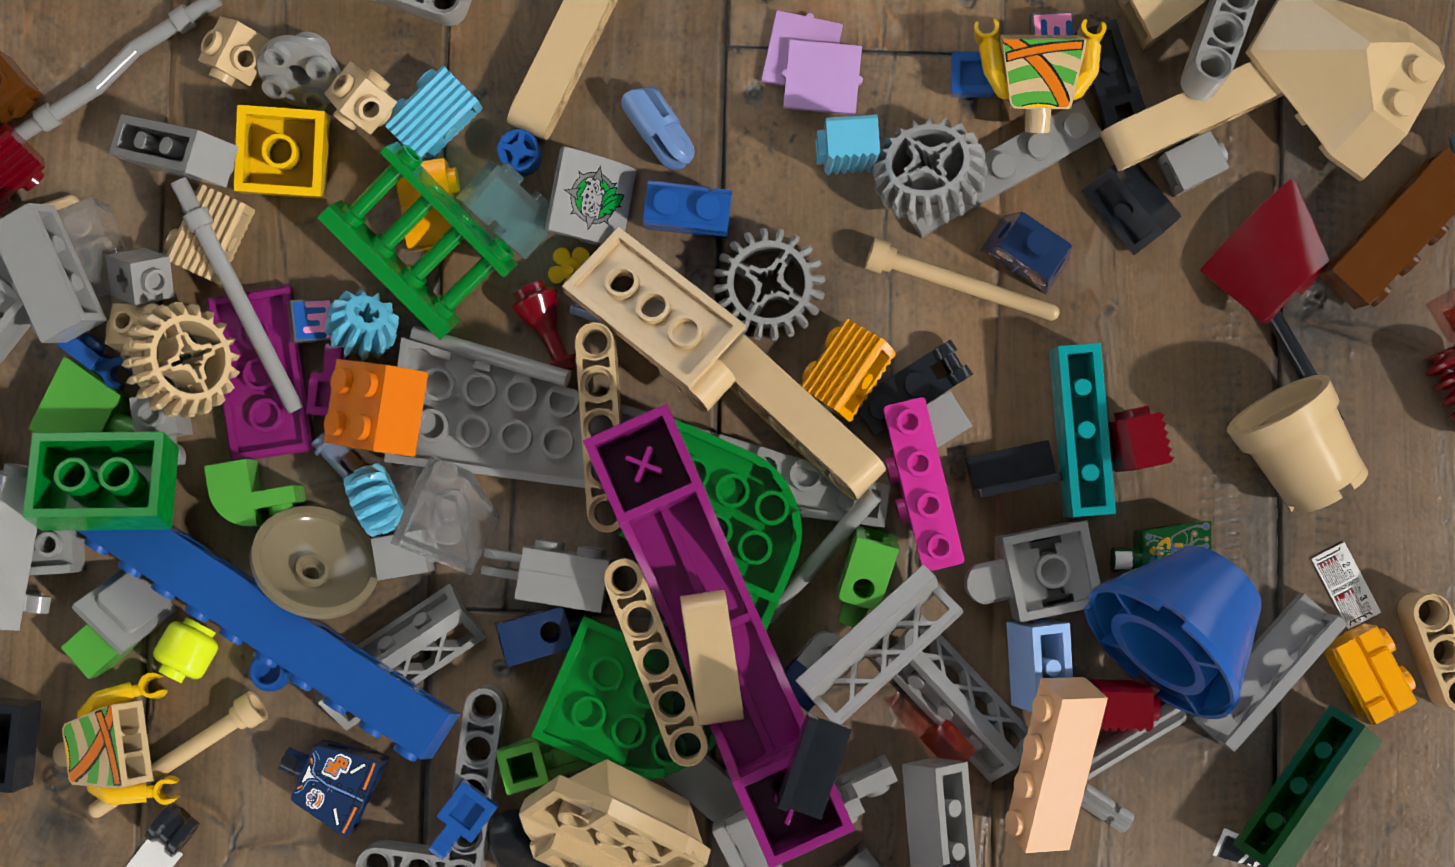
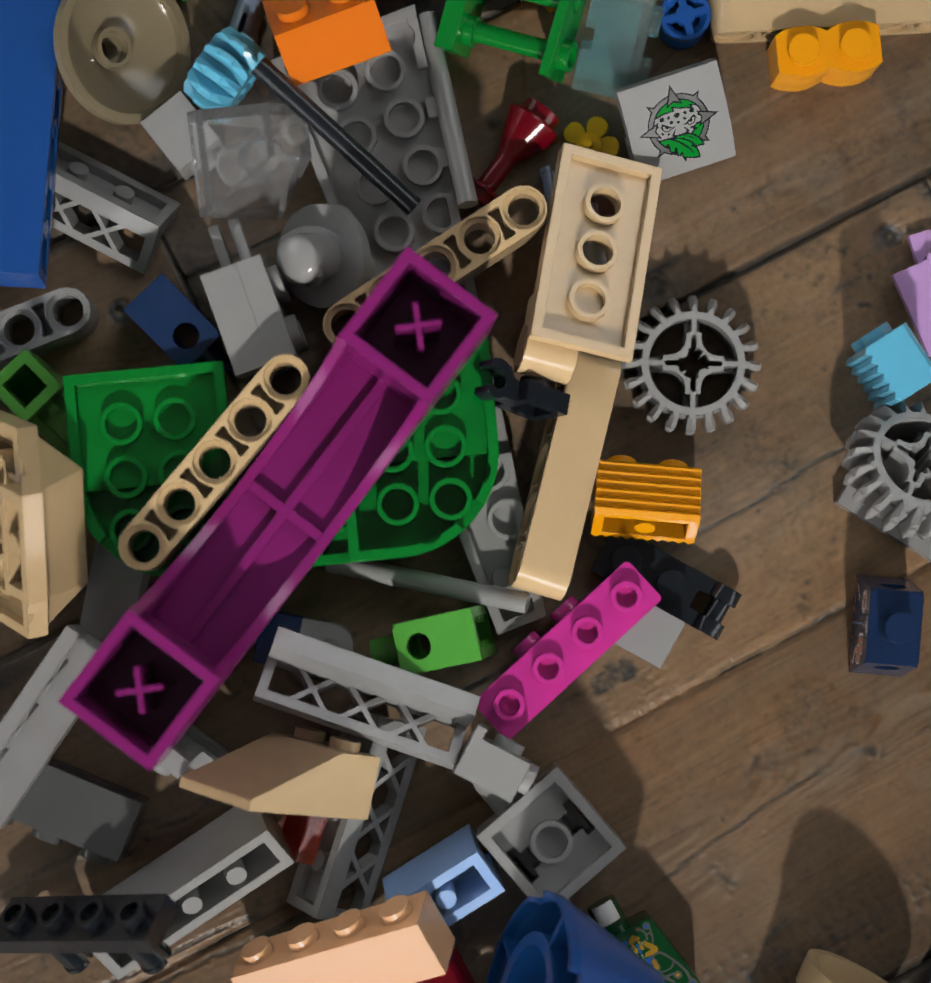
camera: 60 degrees right, 0 degrees up
(466, 445) = (335, 136): none -> black bar
(545, 501) = (324, 254): none -> light grey plate
(608, 58) = (835, 56): none -> light orange brick
(658, 126) = (795, 152): medium blue arm -> none
(687, 209) = (723, 232): blue brick -> none
(711, 657) = (251, 518): tan beam -> none
(728, 414) = (527, 398): none -> black plate
(813, 766) = (193, 687): black panel -> none
(885, 258) = (790, 475): tan piece -> none
(906, 730) = (292, 776): none -> tan slope
(977, 580) = (496, 764): none -> light grey brick
(1012, 469) = (638, 739): black panel -> none
(1082, 430) = (722, 790): teal brick -> none
(1138, 440) = (746, 856): dark red brick -> none

